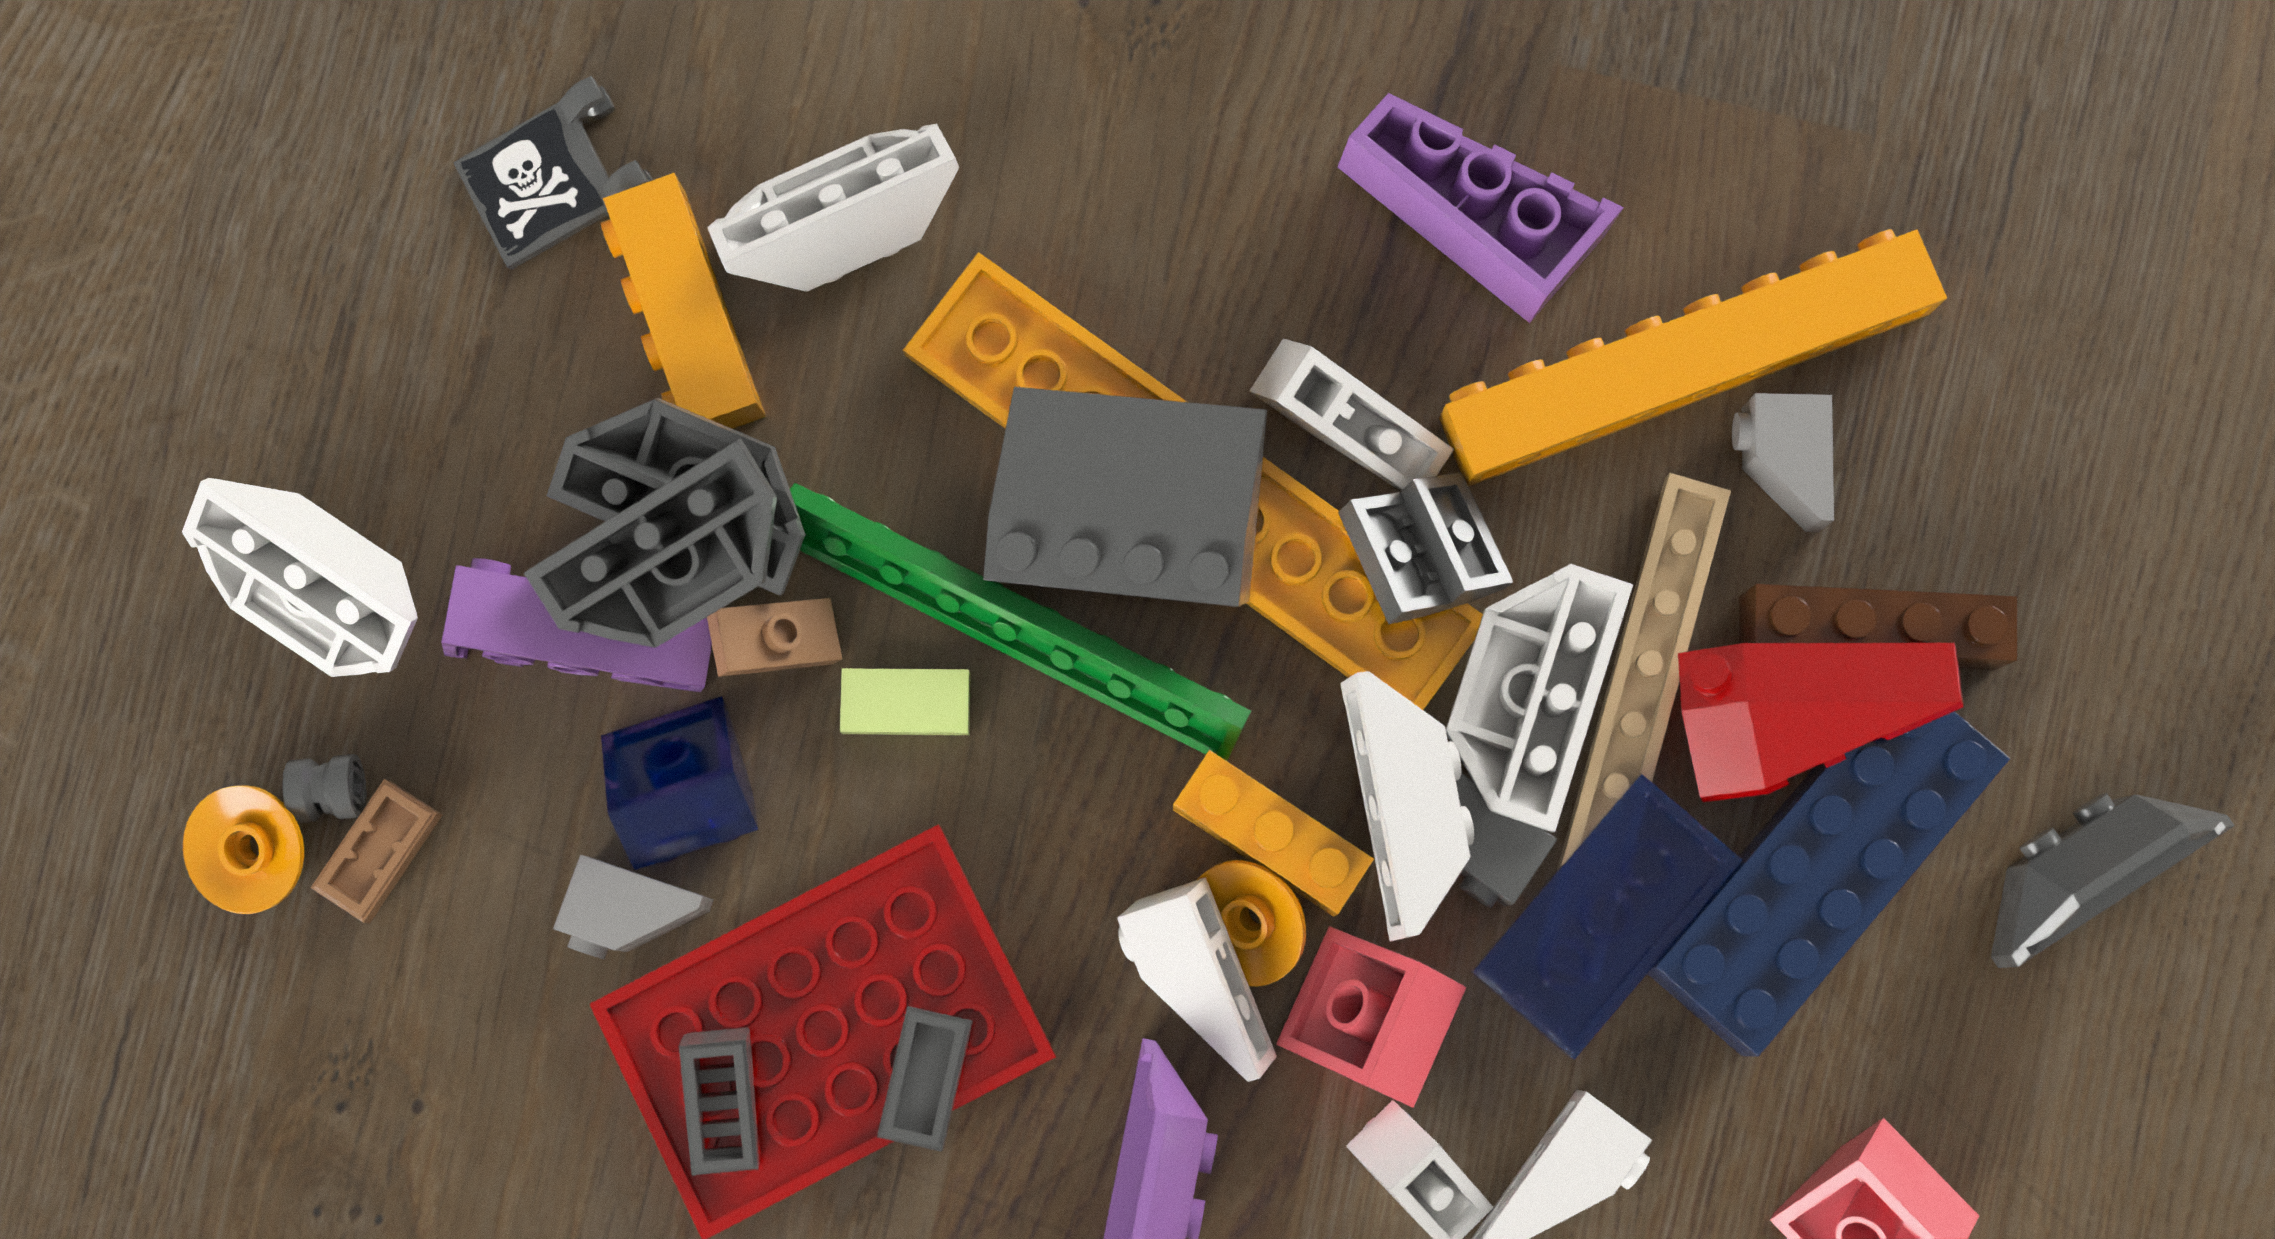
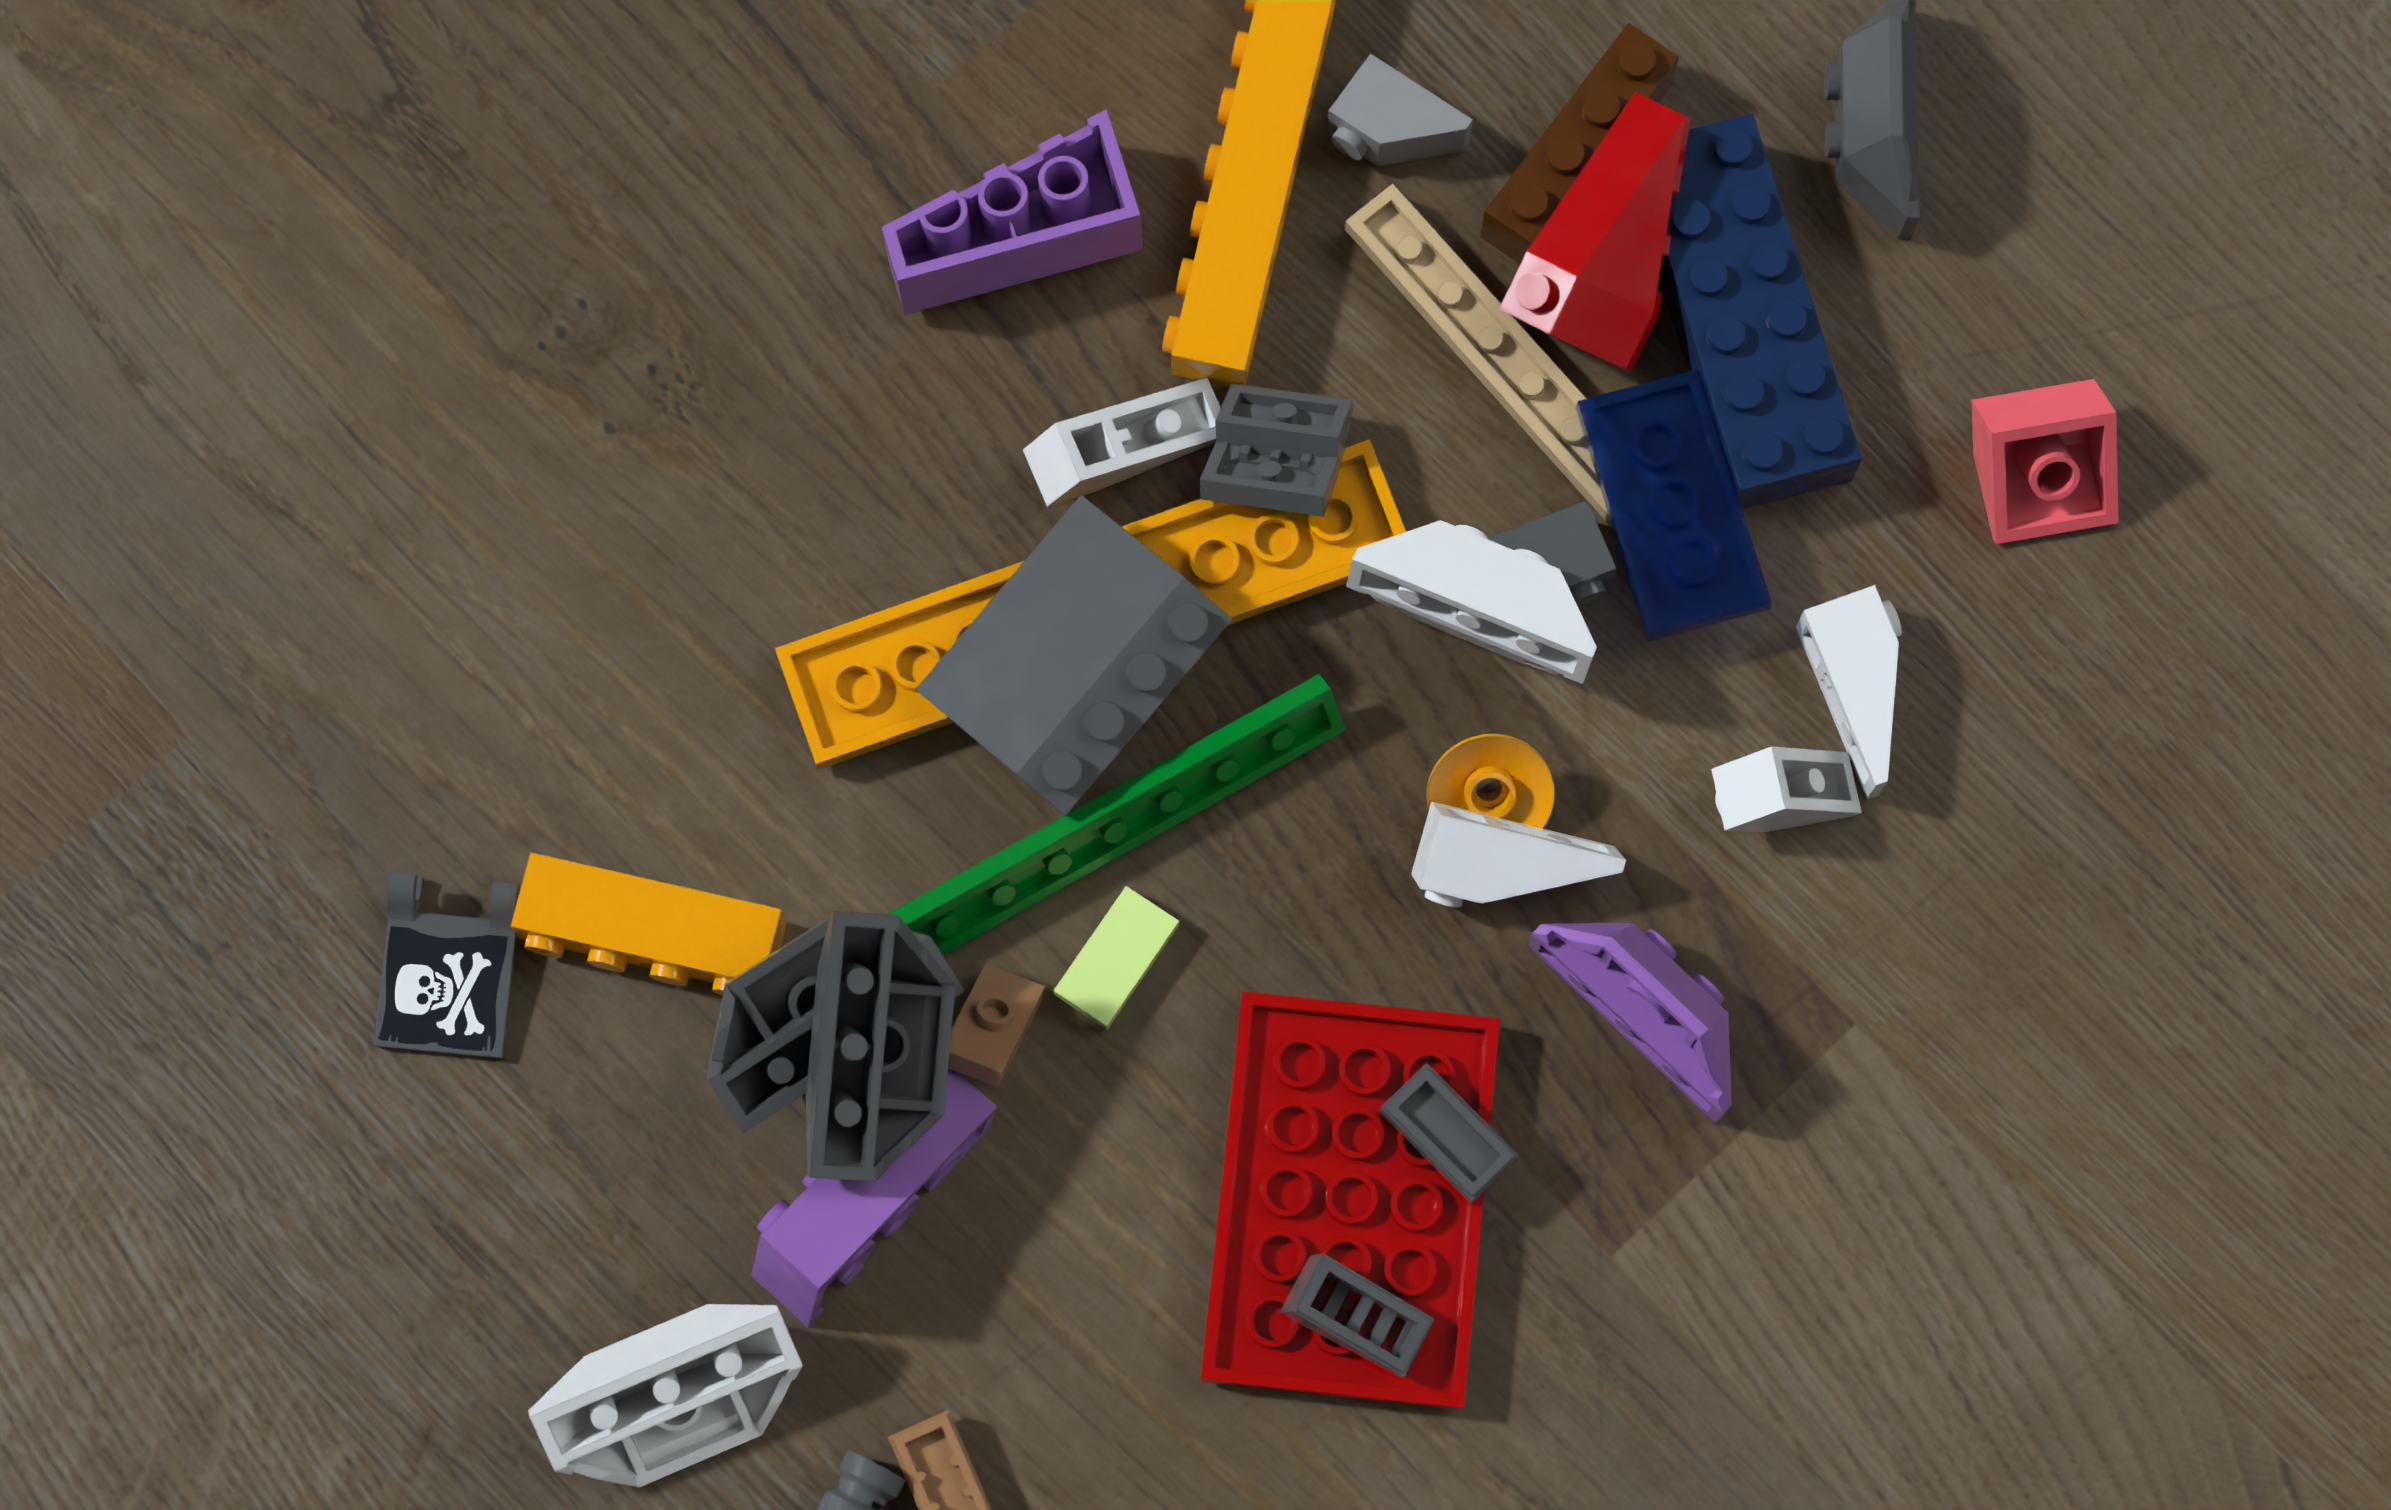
camera: 60 degrees left, 5 degrees down
(621, 908) = (1136, 1300): light grey slope -> none
(677, 784) = (1060, 1187): clear blue slope -> none
(838, 210) = (655, 735): white wedge -> none
(1272, 833) = (1423, 724): light orange brick -> none
(1371, 1015) = (1631, 744): coral slope -> none
(1535, 690) = (1454, 436): white wedge -> none

